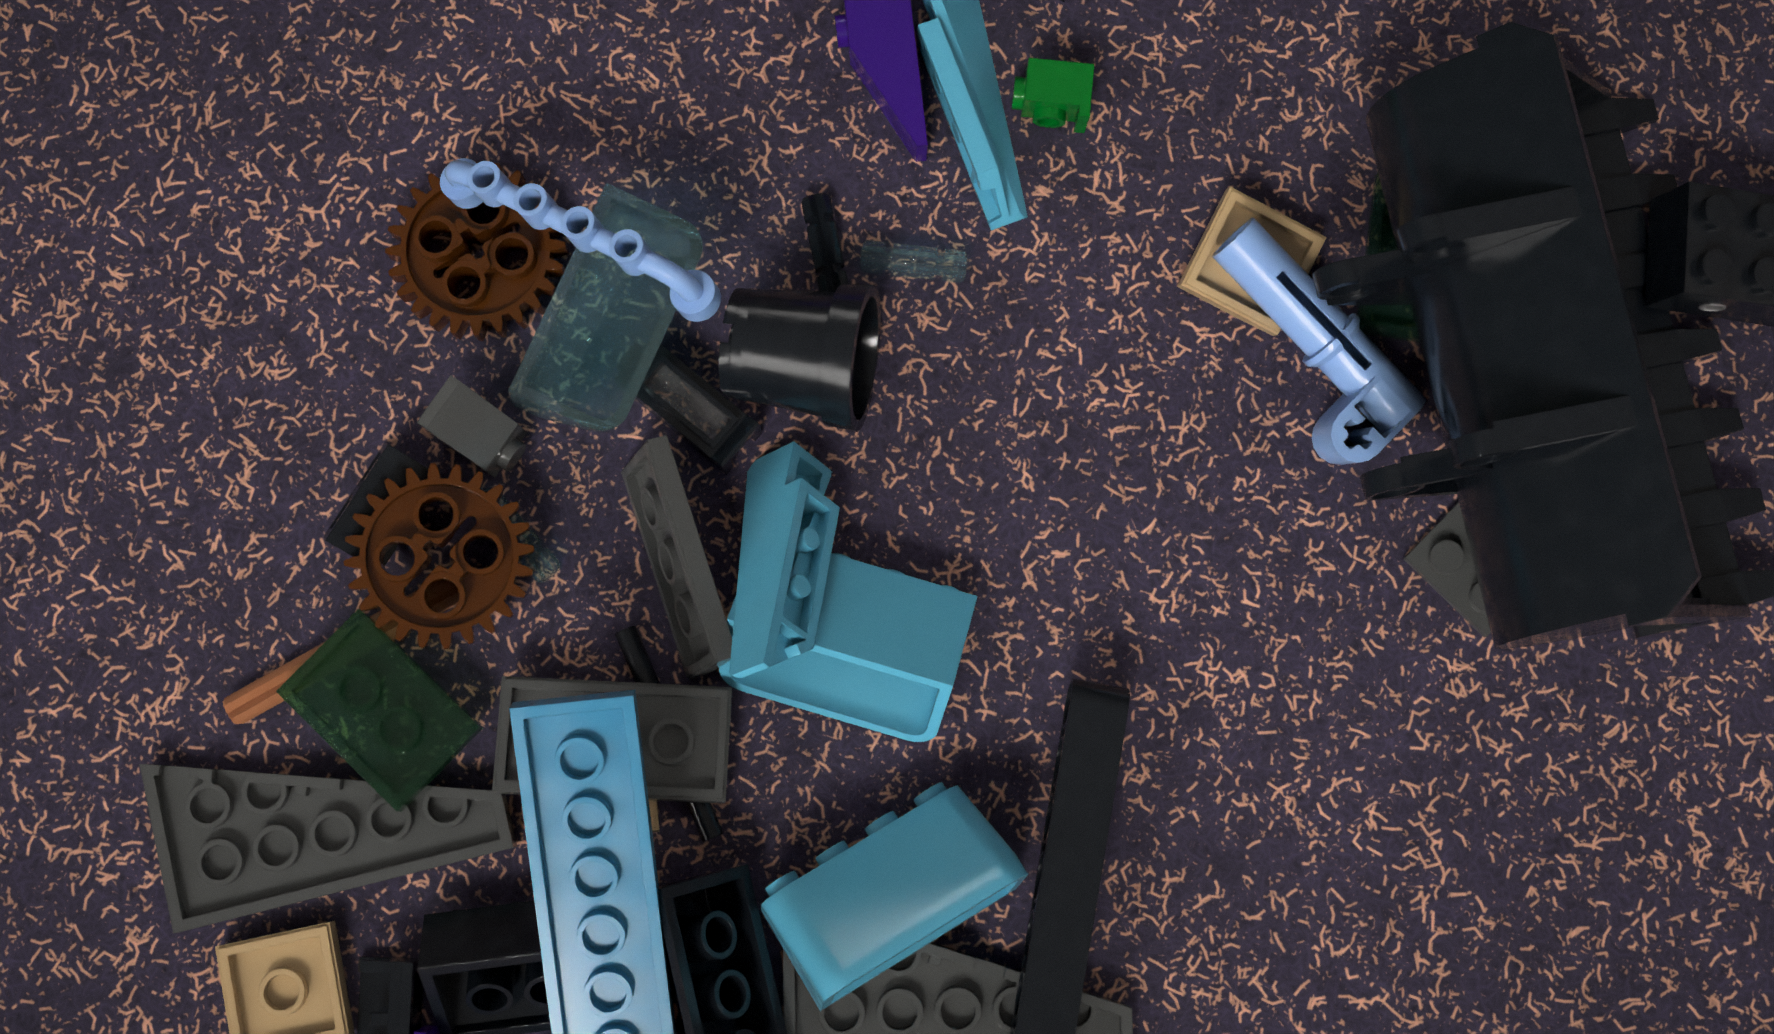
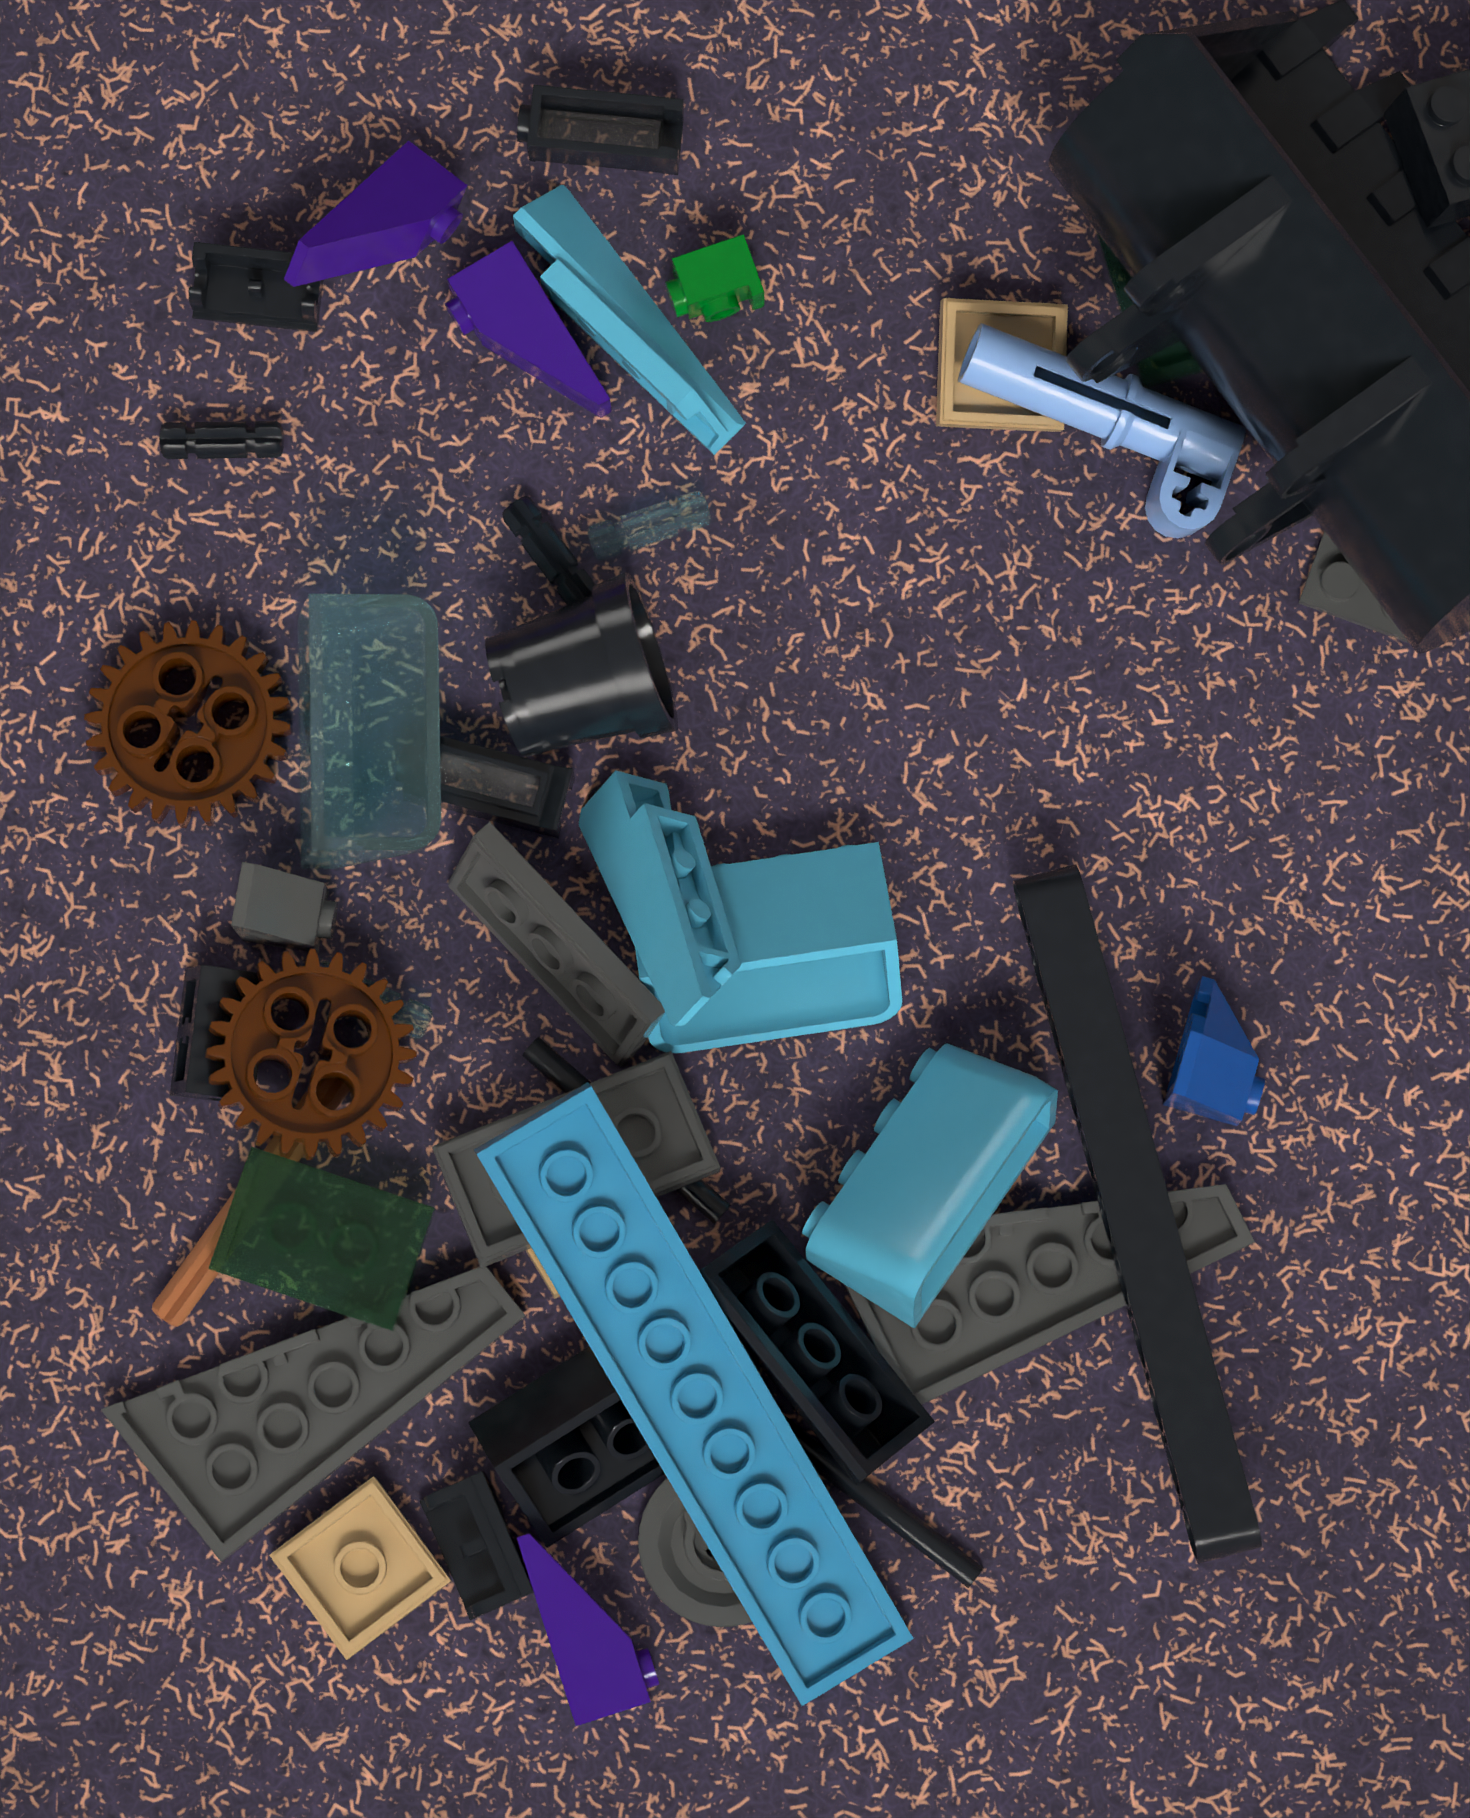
camera: 20 degrees left, 0 degrees up
(473, 183) = (154, 659): light blue bar -> none
(612, 44) = (221, 440): none -> black axle
(1168, 901) = (1214, 1062): none -> blue slope

